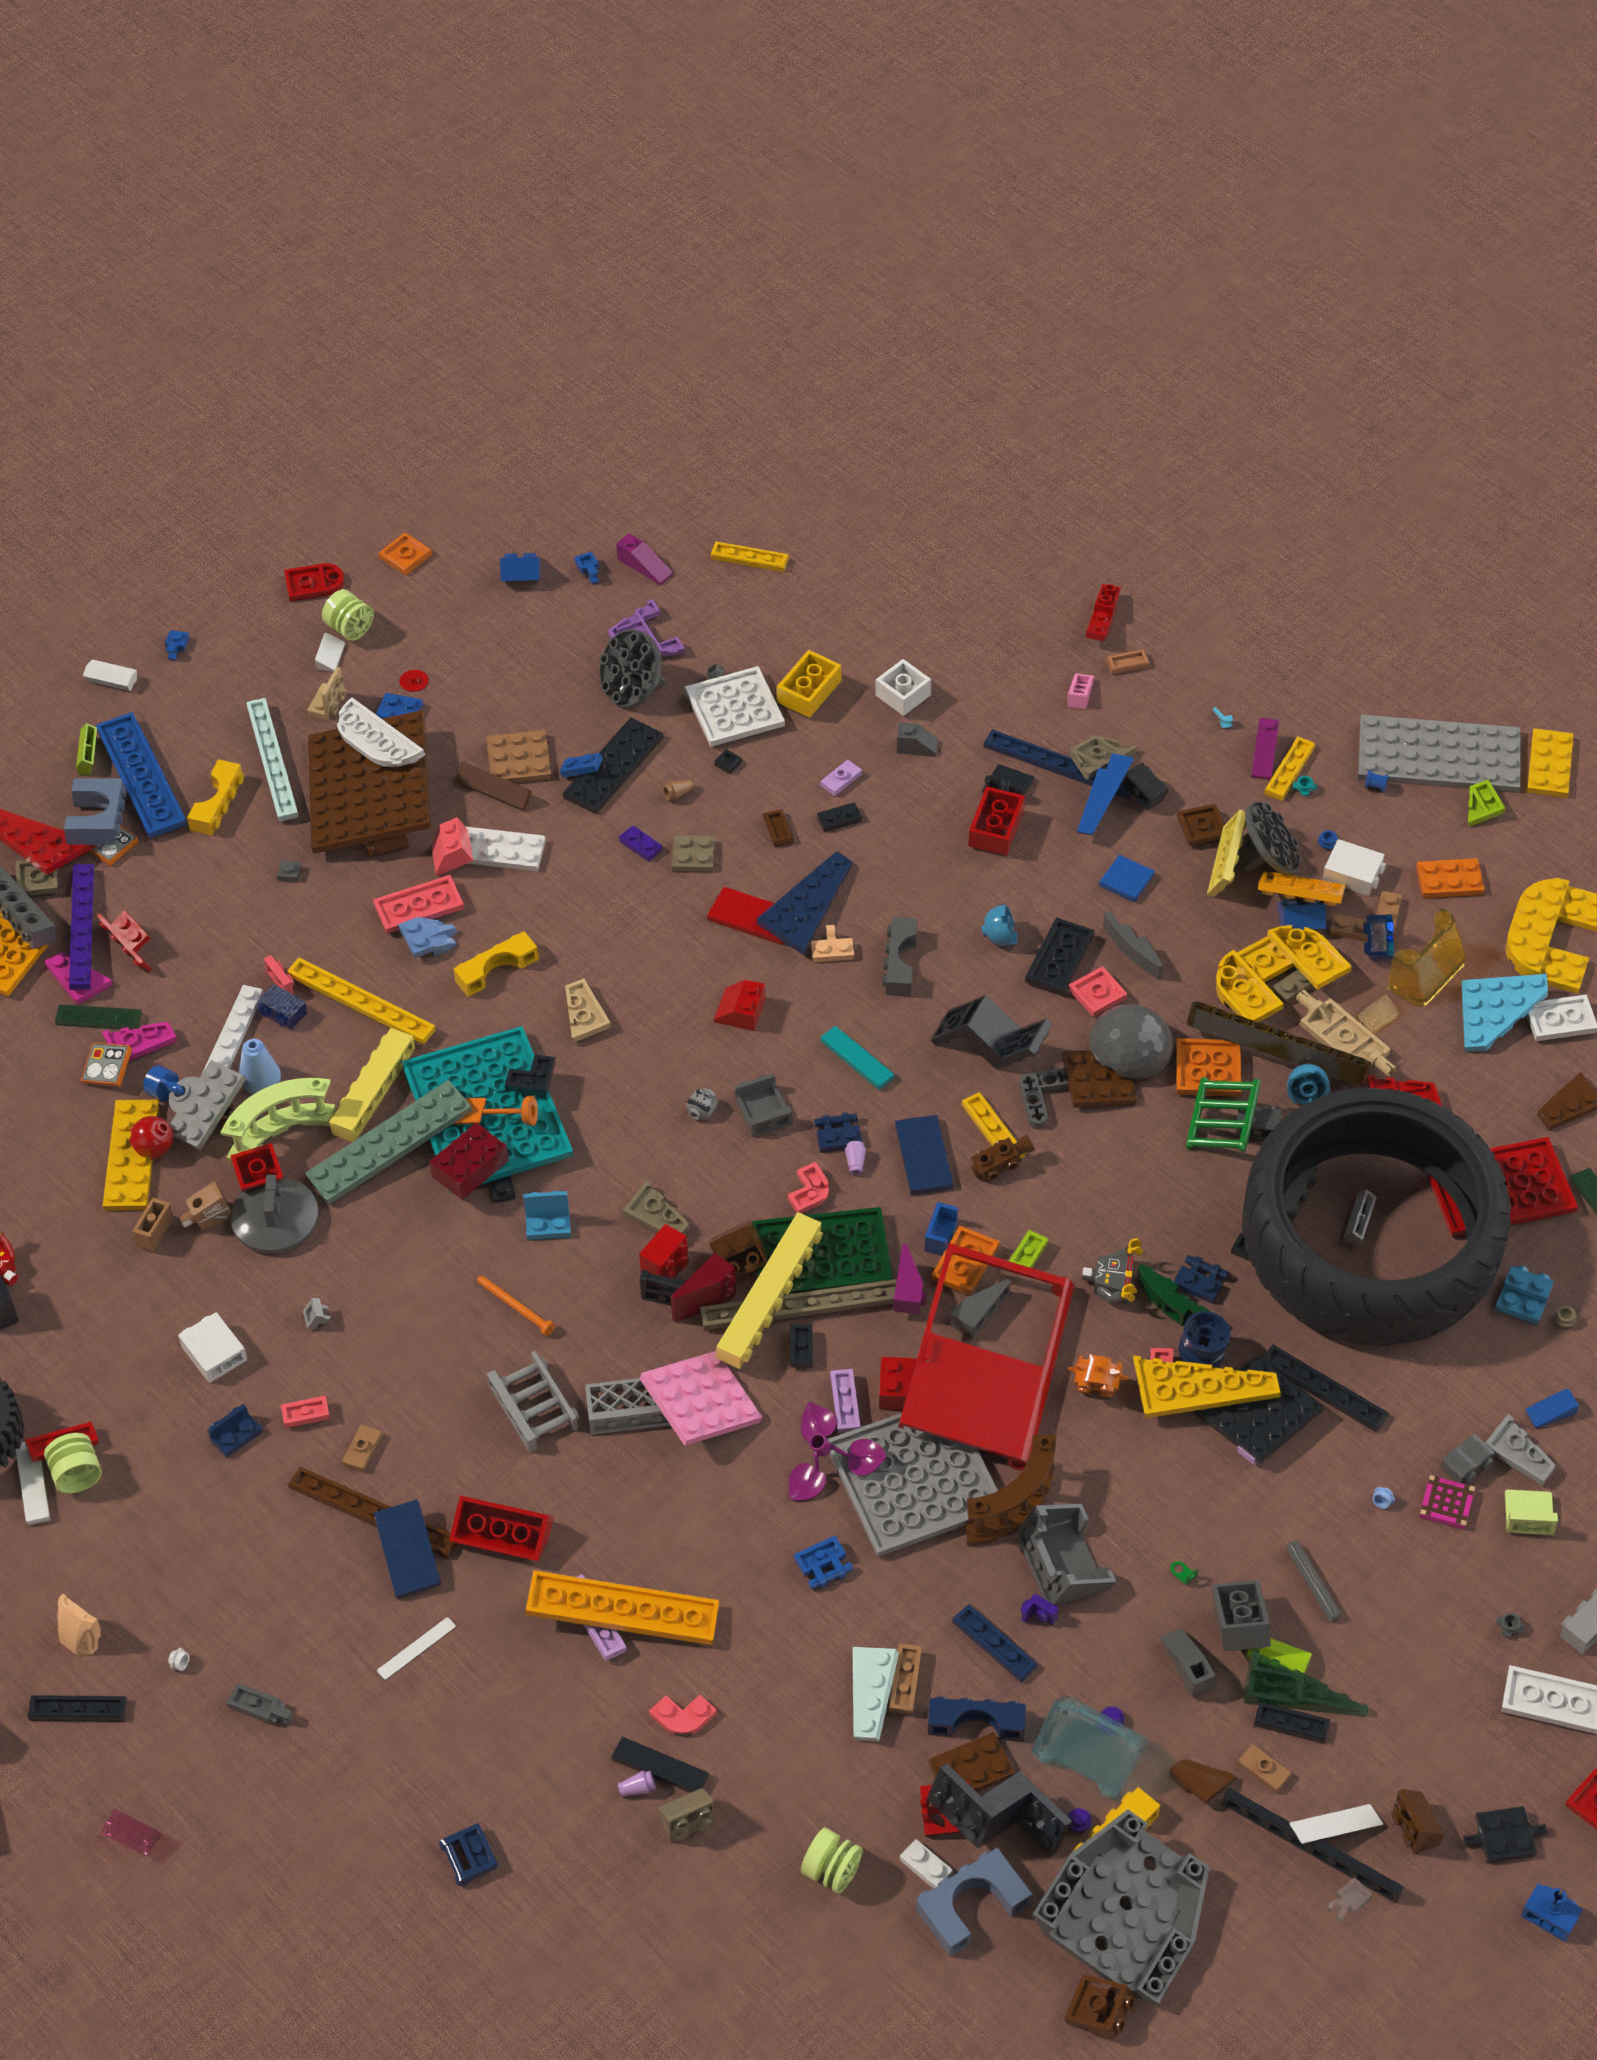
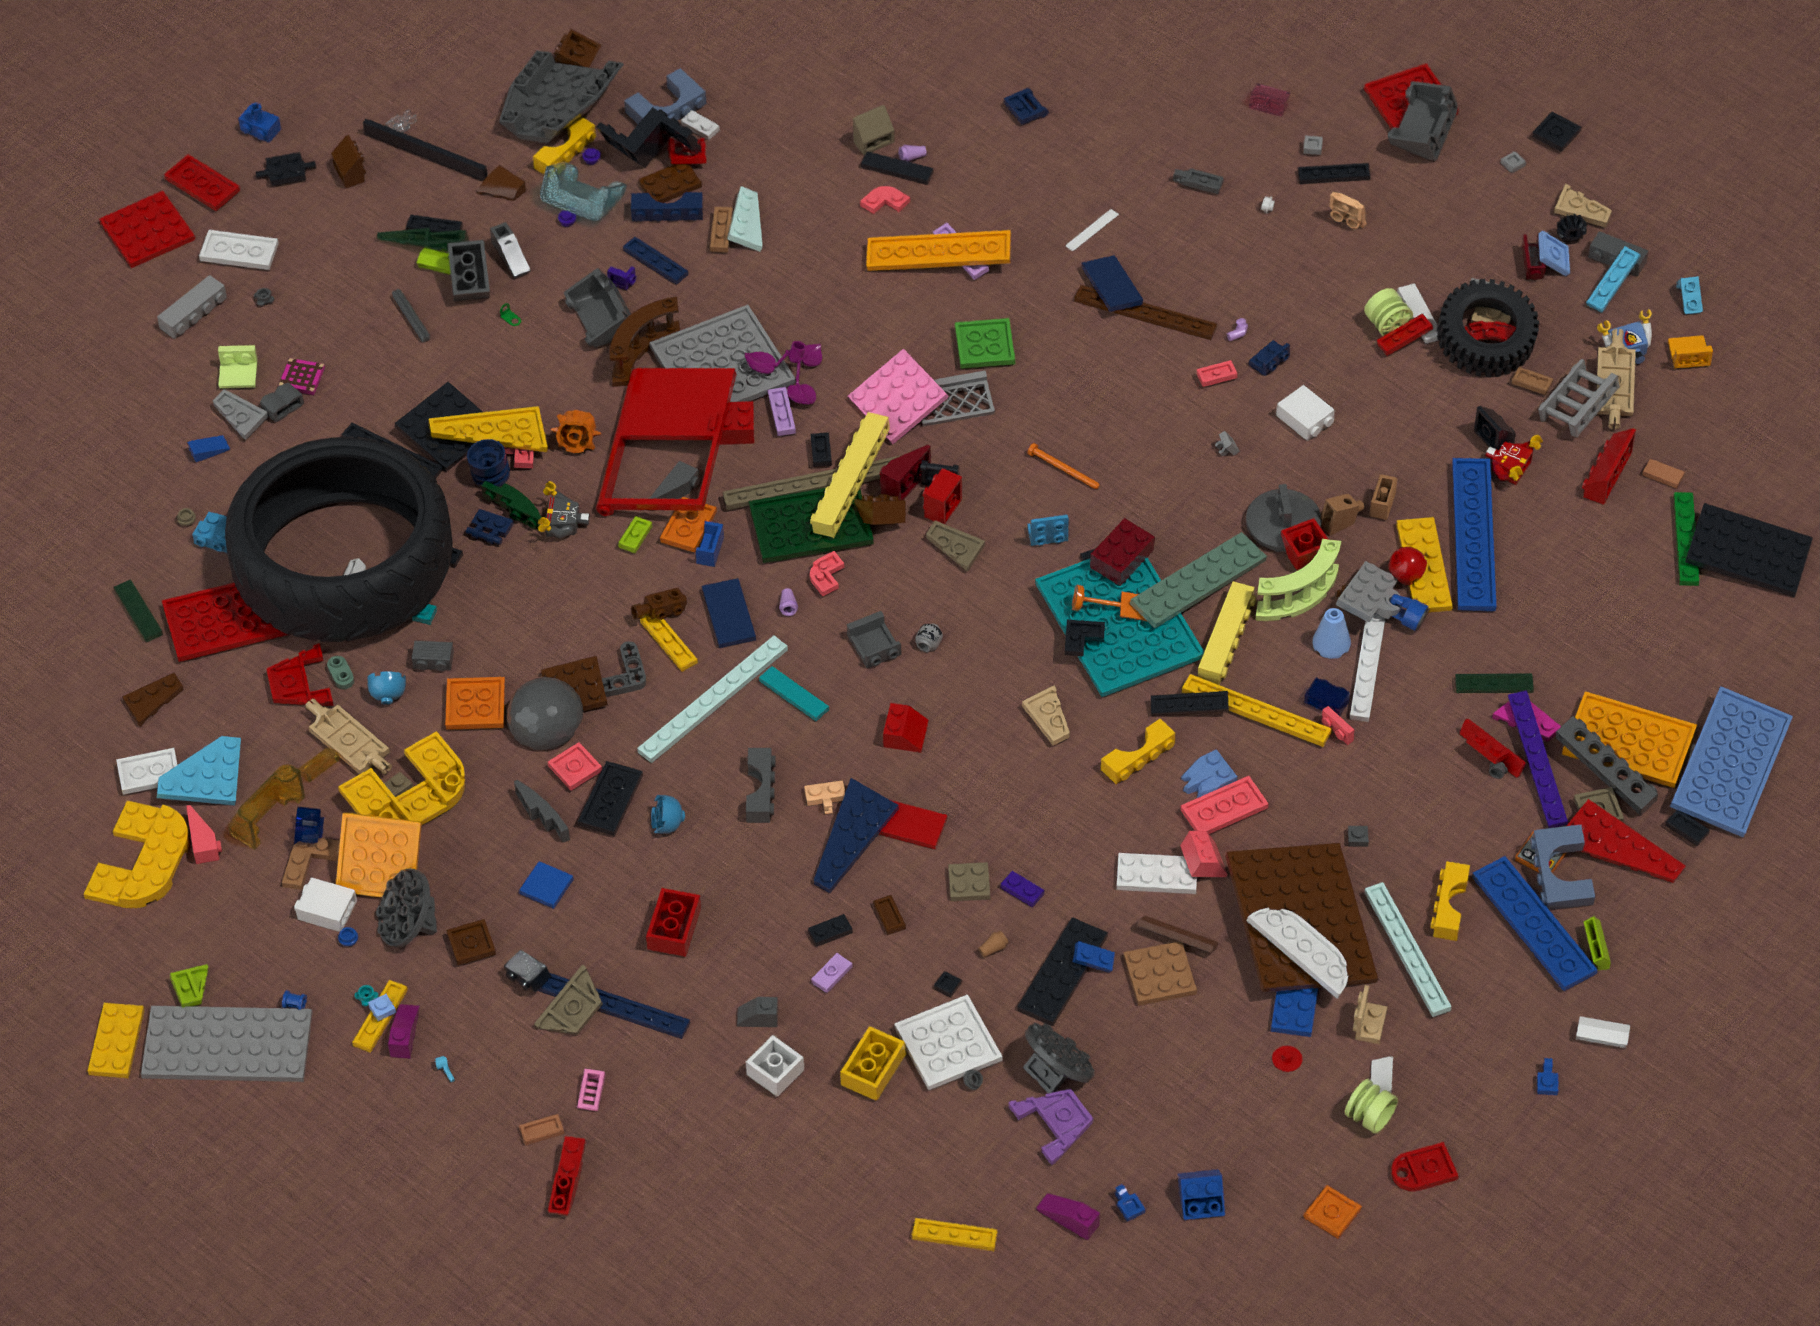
camera: 175 degrees right, 0 degrees up
(63, 1184) = (1474, 534): none -> blue plate
(92, 1751) = (1313, 145): none -> light grey plate
(106, 1064) = (1469, 630): tile -> none
(142, 1040) = (1449, 659): dark pink wing -> none
(262, 1472) = (1240, 330): none -> lavender arm
(361, 1448) = (1165, 354): medium nougat plate -> none
(430, 1008) = (1189, 703): none -> black tile
(501, 1528) = (1041, 299): red slope -> none
(520, 1418) = (1042, 378): light grey fence -> none
(582, 1477) = (984, 343): none -> bright green plate
(821, 1556) = (789, 299): blue plate -> none
(828, 1858) = (766, 108): yellowish green wheel -> none
(837, 1138) = (803, 622): dark blue plate -> none
(909, 1286) = (734, 484): magenta slope -> none
(931, 1069) = (712, 699): none -> light aqua plate
(991, 1032) = (672, 701): black bracket -> none
(1008, 780) = (663, 976): black hinge -> none
(1103, 791) = (567, 955): blue wedge -> none
(1201, 1103) = (440, 645): green bar -> none
(1227, 854) = (448, 890): light yellow plate -> none
(1264, 1768) = (456, 197): medium nougat plate -> none
(1278, 1042) = (403, 711): dark brown beam -> none
(1288, 766) = (382, 1007): none -> light blue plate
(1336, 1823) = (406, 160): white sticker -> none
(1383, 1497) = (351, 373): light blue plate -> none
(1450, 878) = (233, 907): orange plate -> none
(1491, 942) = (203, 839): none -> coral slope

